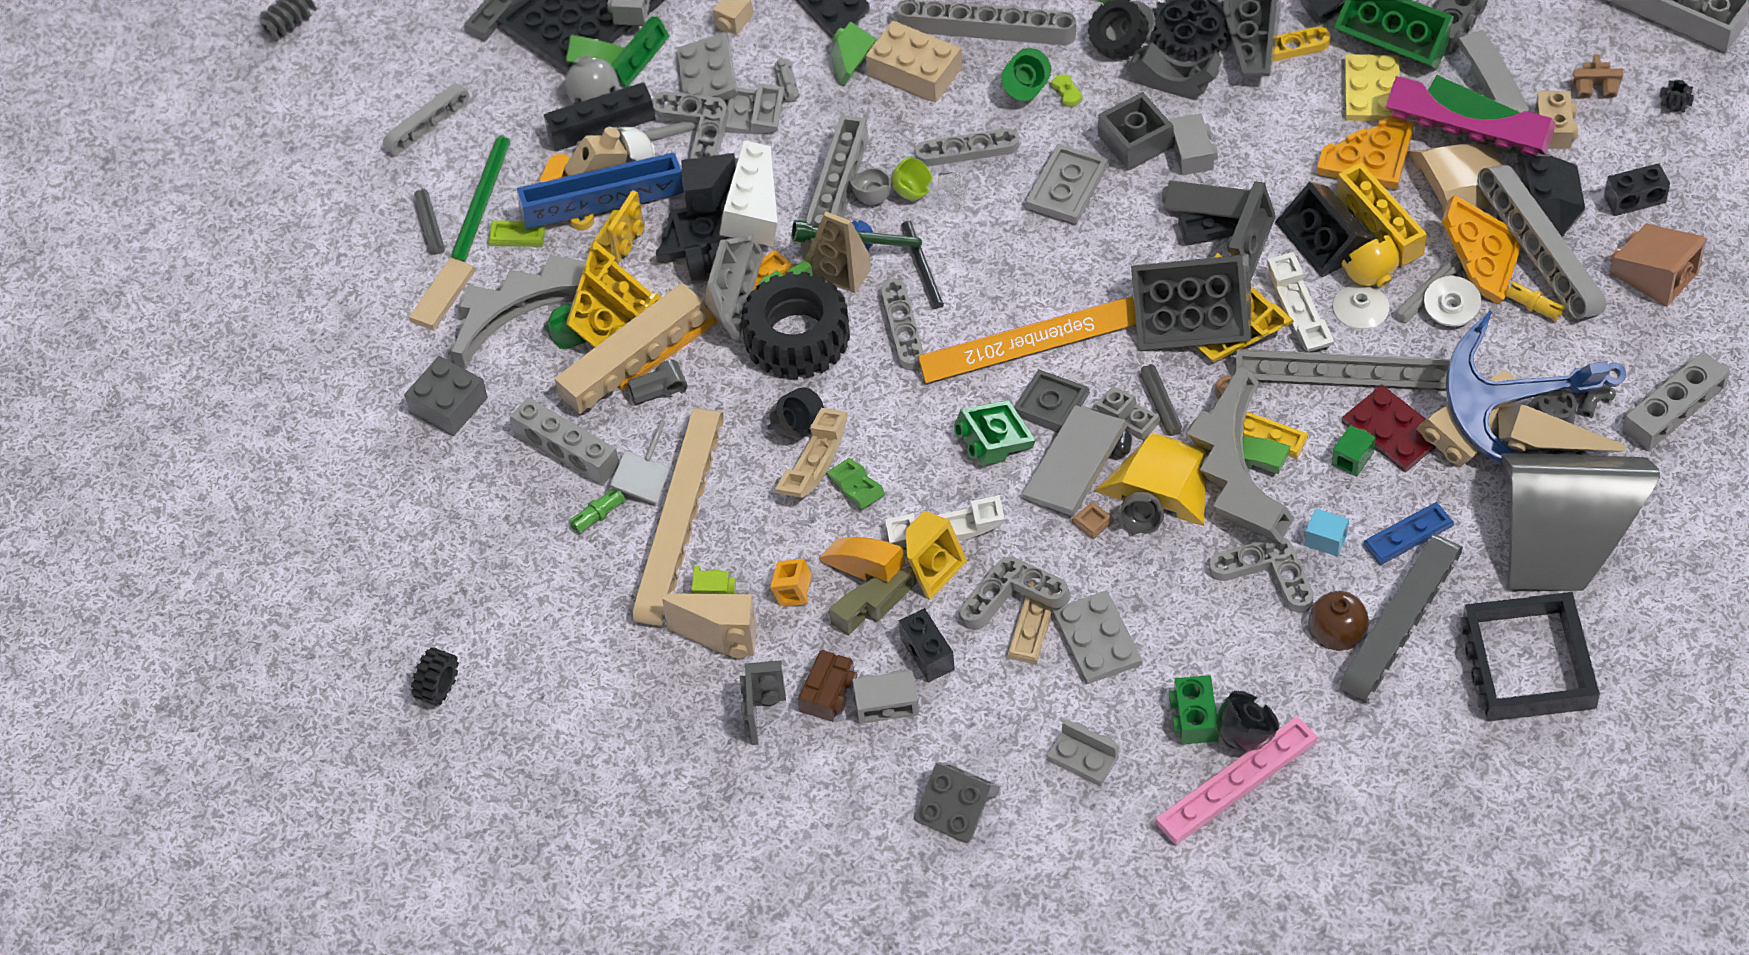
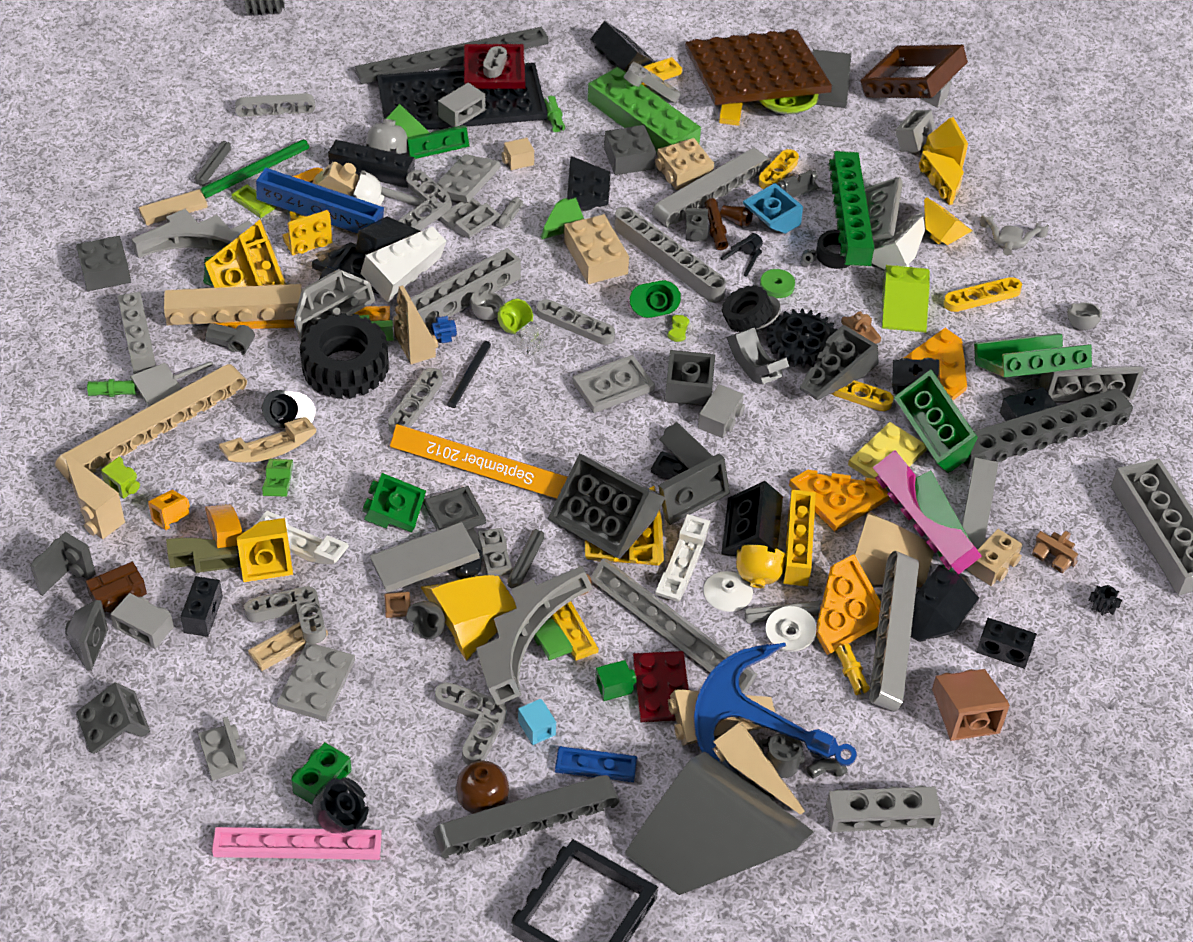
camera: 30 degrees right, 5 degrees down
(802, 231) = (443, 331): dark green piece -> none
(852, 743) = (87, 632): none -> dark grey slope

